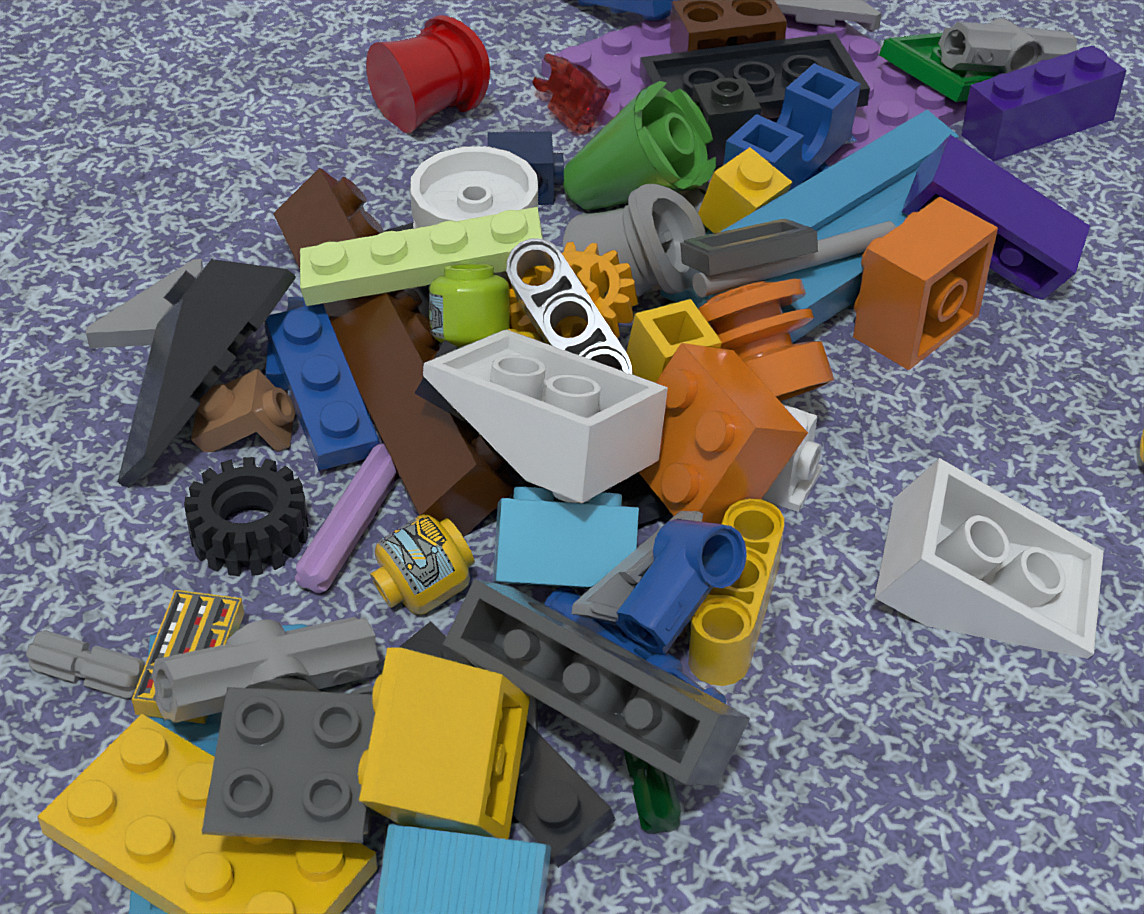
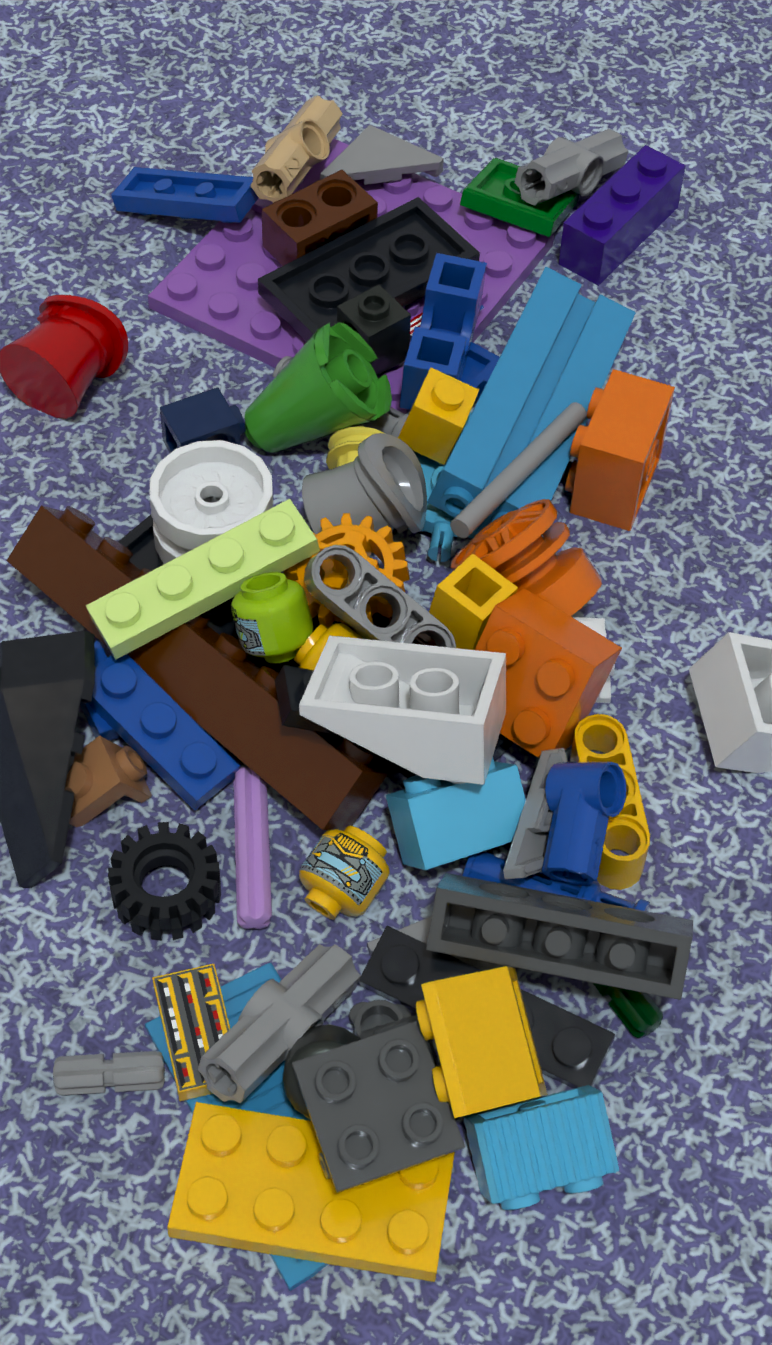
camera: 25 degrees left, 10 degrees up
(575, 93) = (205, 329): clear red plate -> none
(748, 246) = (484, 477): dark grey tile -> none
(1035, 237) = (655, 352): dark purple brick -> none

